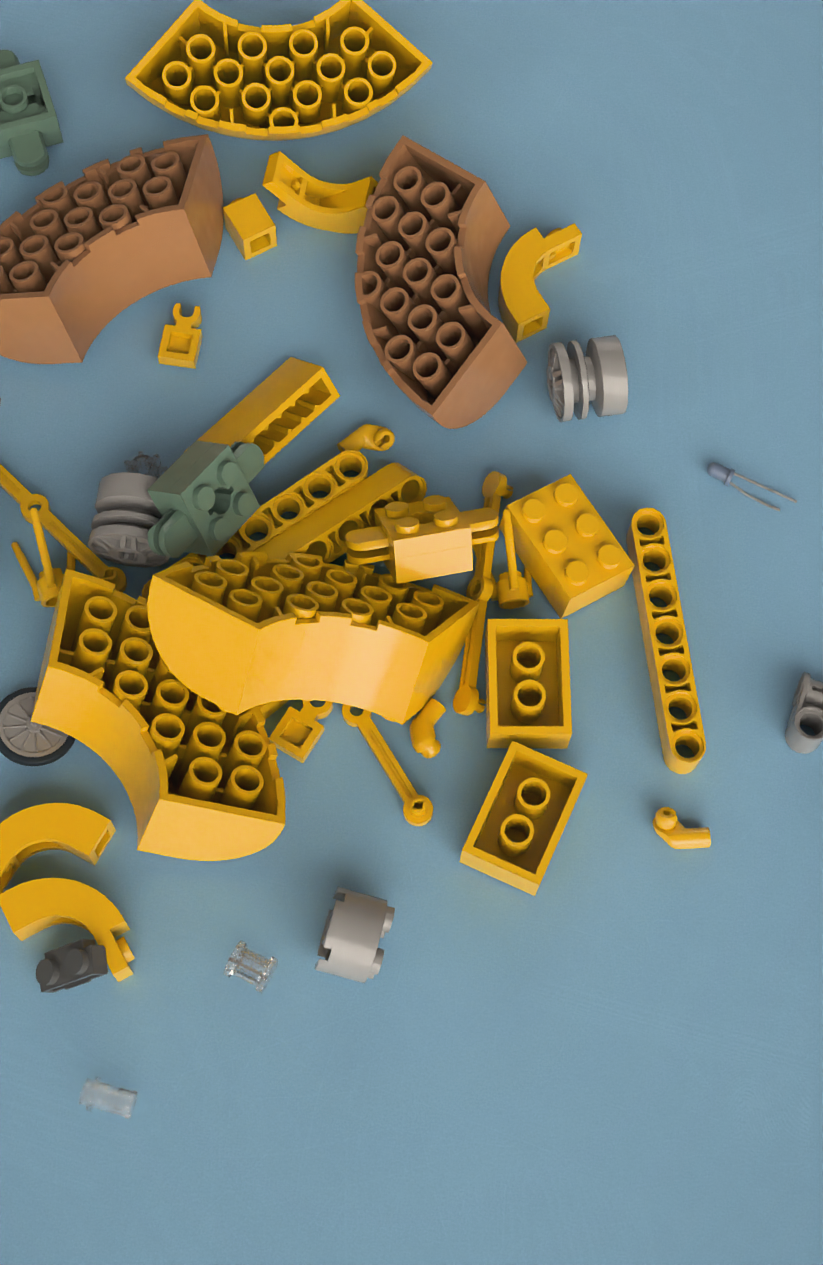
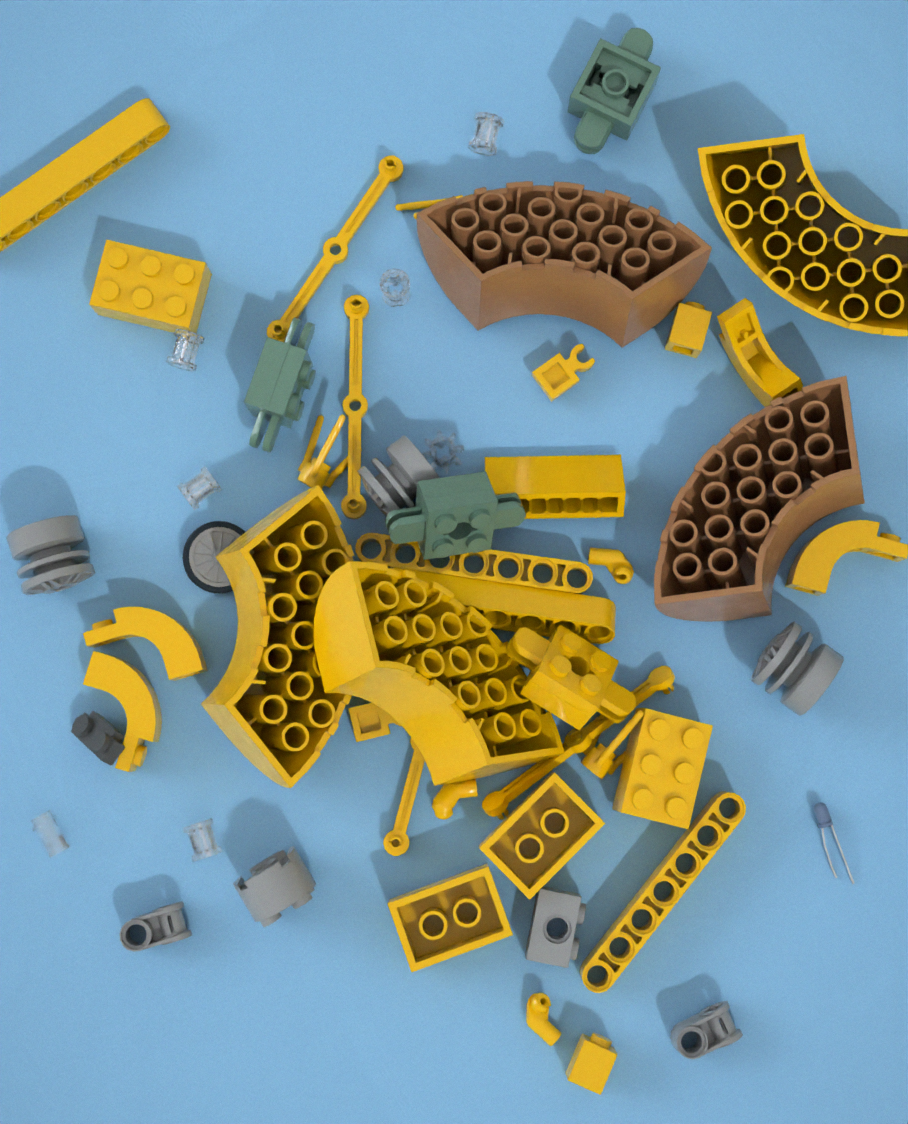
camera: 50 degrees right, 15 degrees up
(286, 1078) = (158, 927): none -> light grey piece
(614, 770) = (552, 949): none -> light grey brick
(755, 823) = (591, 1062): none -> yellow brick

